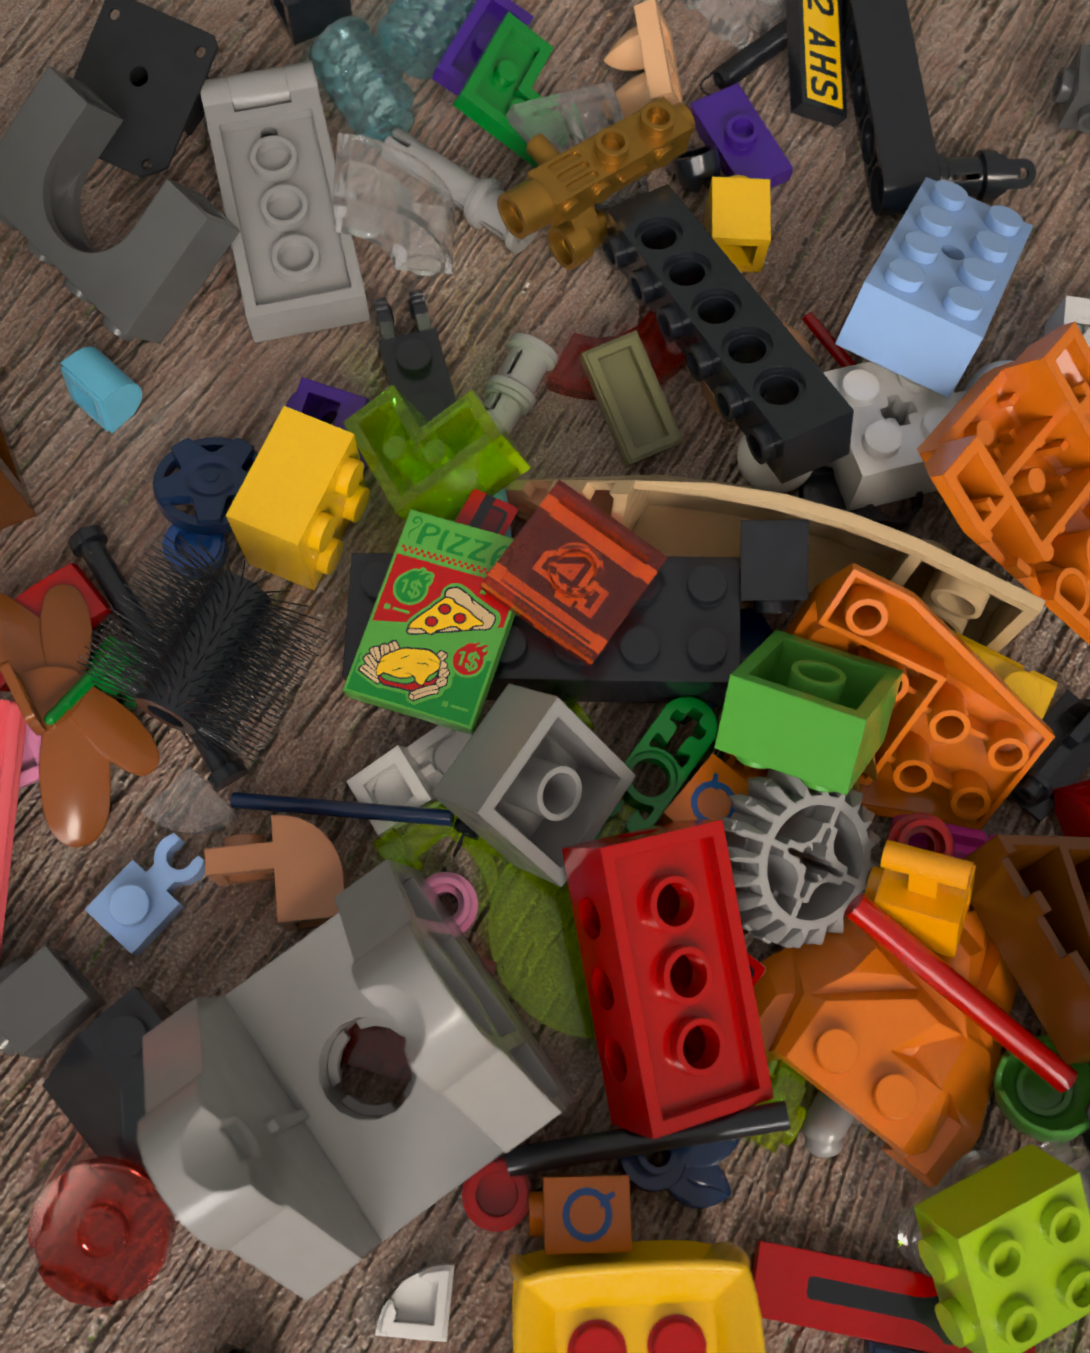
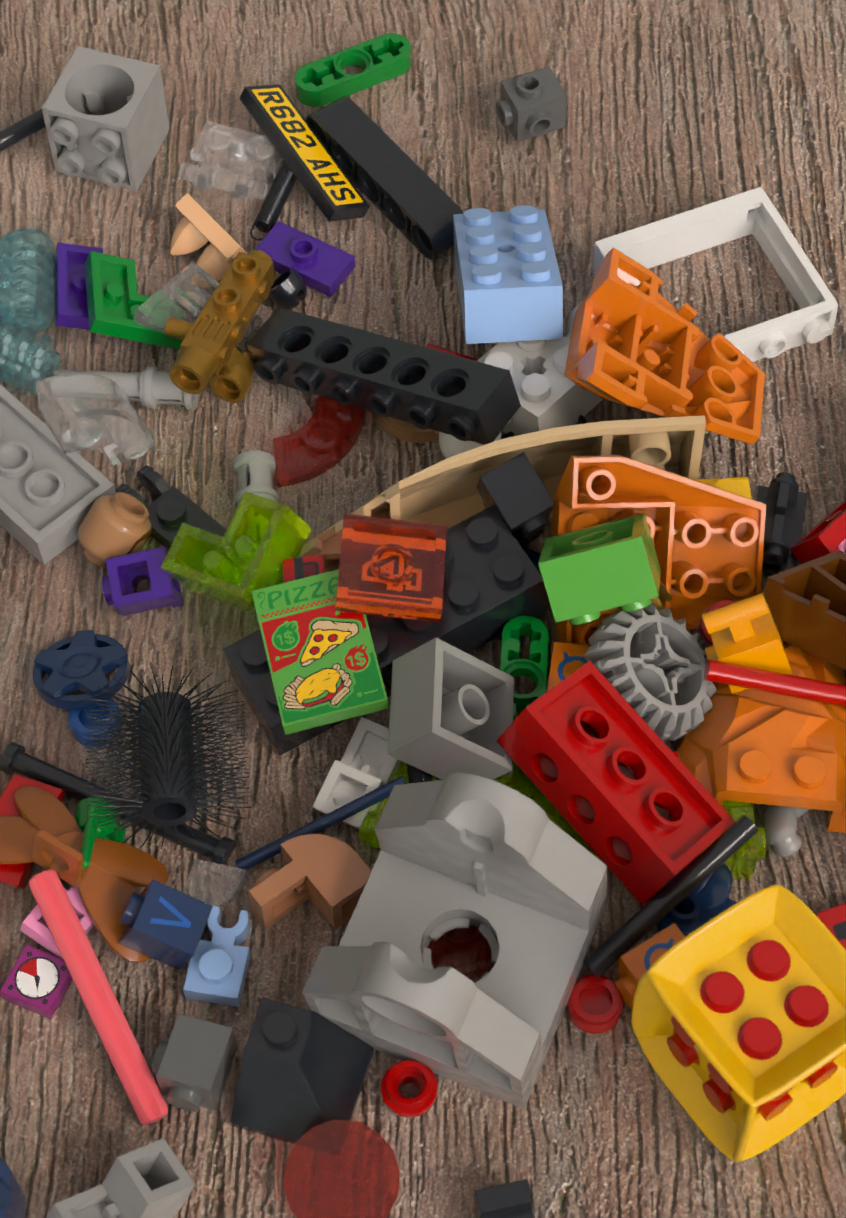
camera: 25 degrees left, 15 degrees down
(102, 828) = (163, 924): none -> dark blue brick
(299, 499) = (162, 630): yellow brick -> none
(339, 345) = (114, 528): none -> medium nougat head
(419, 1305) = (591, 1101): white tile -> none
(630, 398) = (343, 458): olive tile -> none
(740, 219) = (341, 301): yellow brick -> none
(987, 173) = (491, 192): black piece -> none

